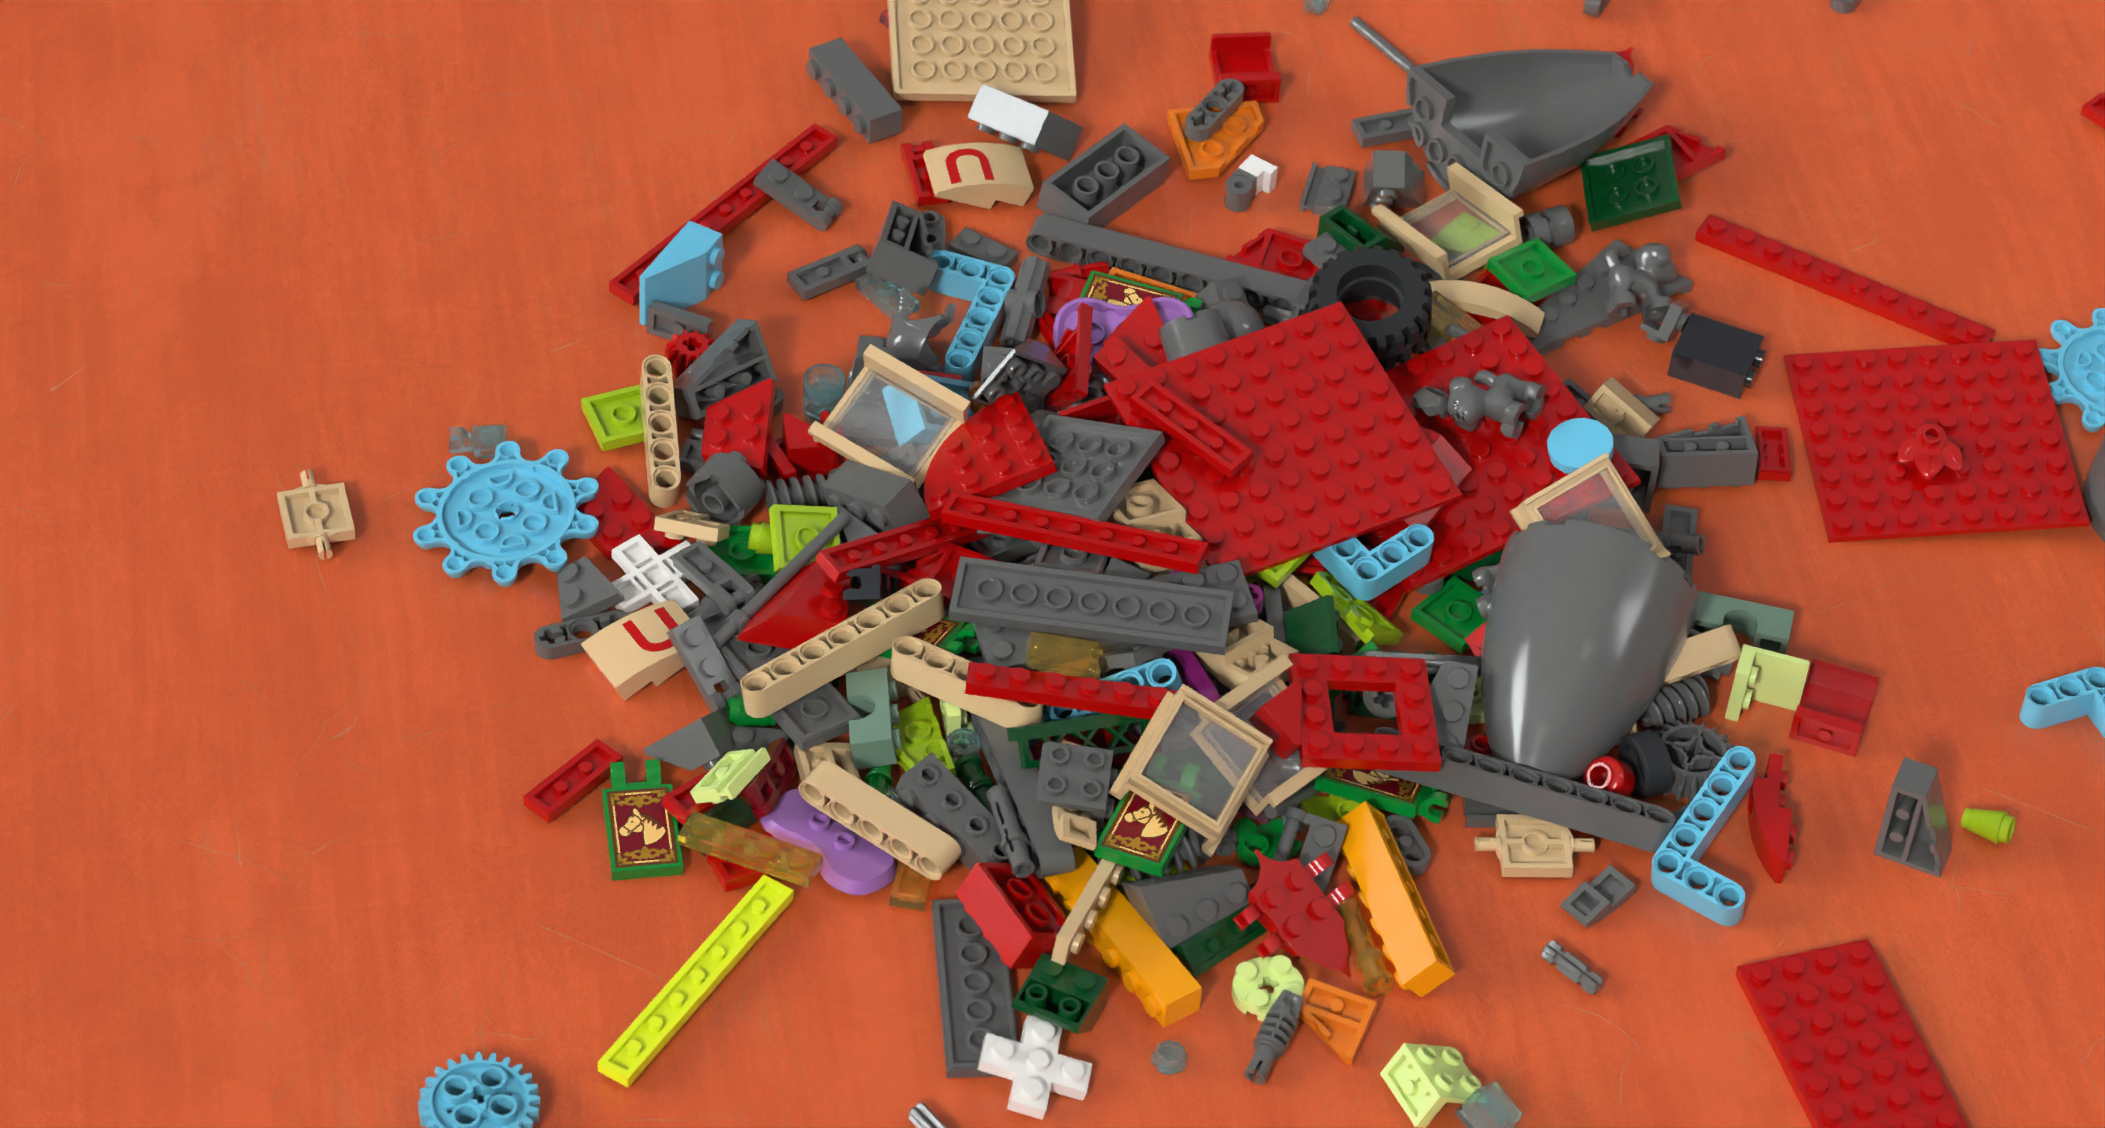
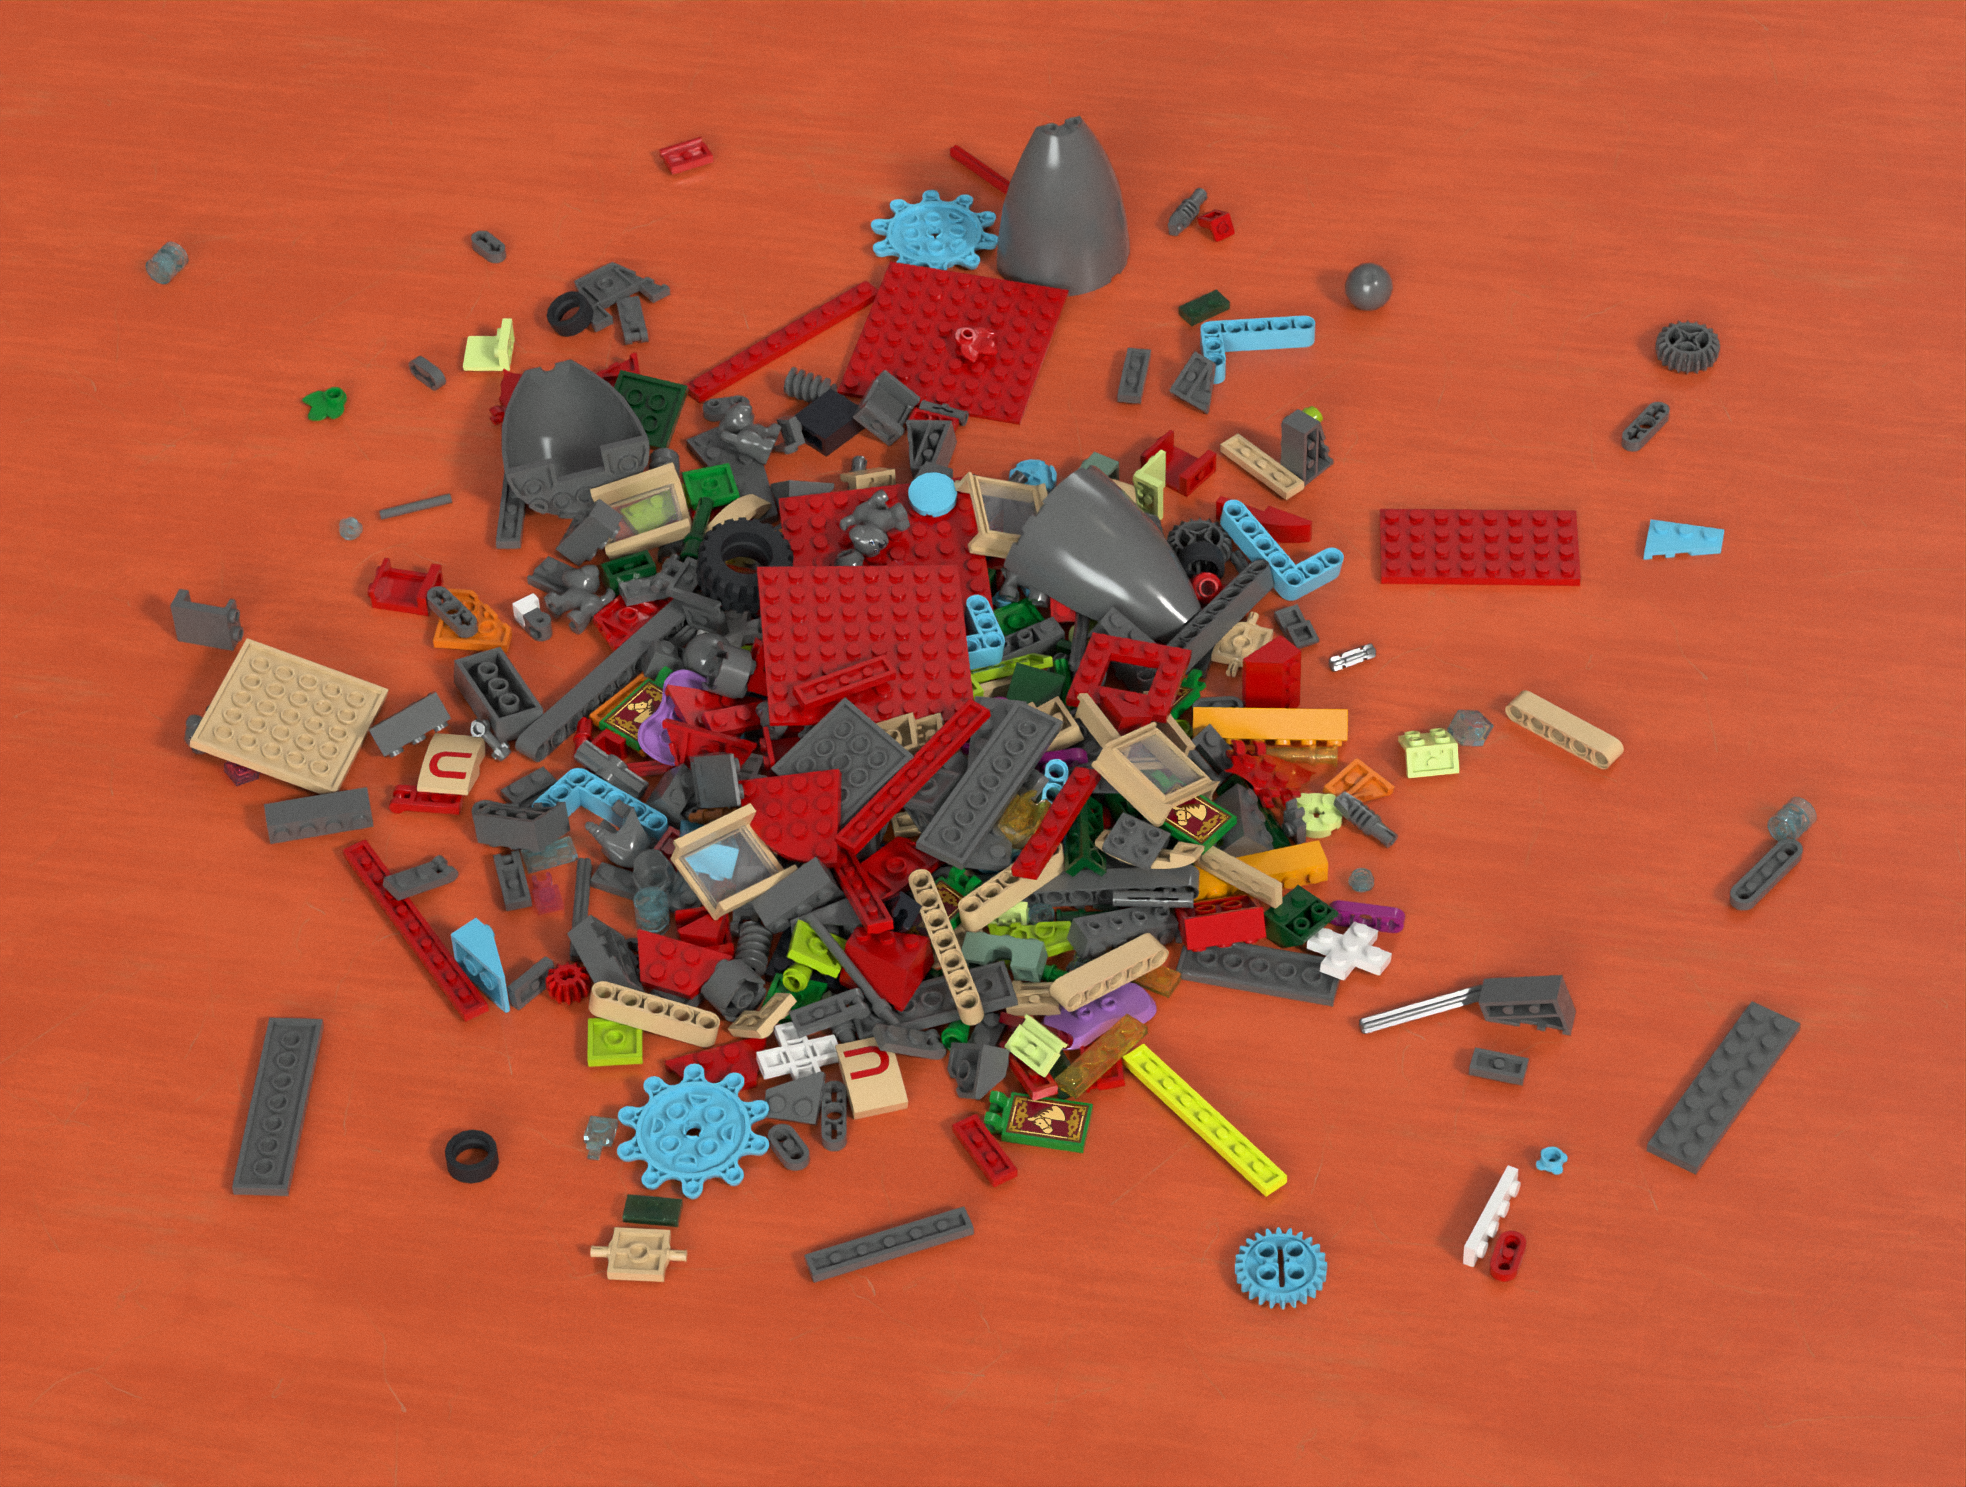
camera: 65 degrees left, 0 degrees up
(383, 511) = (652, 1210): none -> clear green plate
(400, 728) = (889, 1244): none -> dark grey plate
(416, 360) = (475, 1172): none -> black tyre
(430, 176) = (278, 1107): none -> dark grey plate
(512, 606) = (791, 1152): none -> dark grey plate
(824, 310) = (546, 895): none -> clear pink plate
(827, 337) = (581, 899): none -> dark grey axle
(1034, 175) = (482, 729): none -> dark grey bar
(1104, 1073) = (1386, 914): none -> magenta beam
(1228, 959) = (1293, 824): none -> dark grey plate
(1288, 206) = (579, 597): none -> dark grey animal
(1420, 625) = (1037, 639): none -> dark grey slope
(1455, 268) = (698, 529): none -> dark green pin
(1456, 870) = (1272, 676): none -> red slope
(1570, 355) = (798, 488): none -> dark grey slope
(1671, 37) = (490, 352): none -> yellowish green bracket
(1695, 263) = (716, 408): none -> dark grey plate
(1732, 573) = (1037, 473): none -> medium azure tile
(1763, 394) = (886, 407): none -> dark grey panel
(1765, 82) = (576, 323): none -> black tyre
(1767, 317) = (806, 387): none -> dark grey piece
(1797, 144) = (632, 320): none -> dark grey plate
(1798, 446) = (944, 409): none -> dark grey pin
(1836, 104) = (613, 283): none -> dark grey wing
(1867, 812) = (1262, 466): none -> tan plate
(1976, 628) = (1134, 375): none -> dark grey plate
(1992, 689) = (1196, 382): none -> dark grey wing

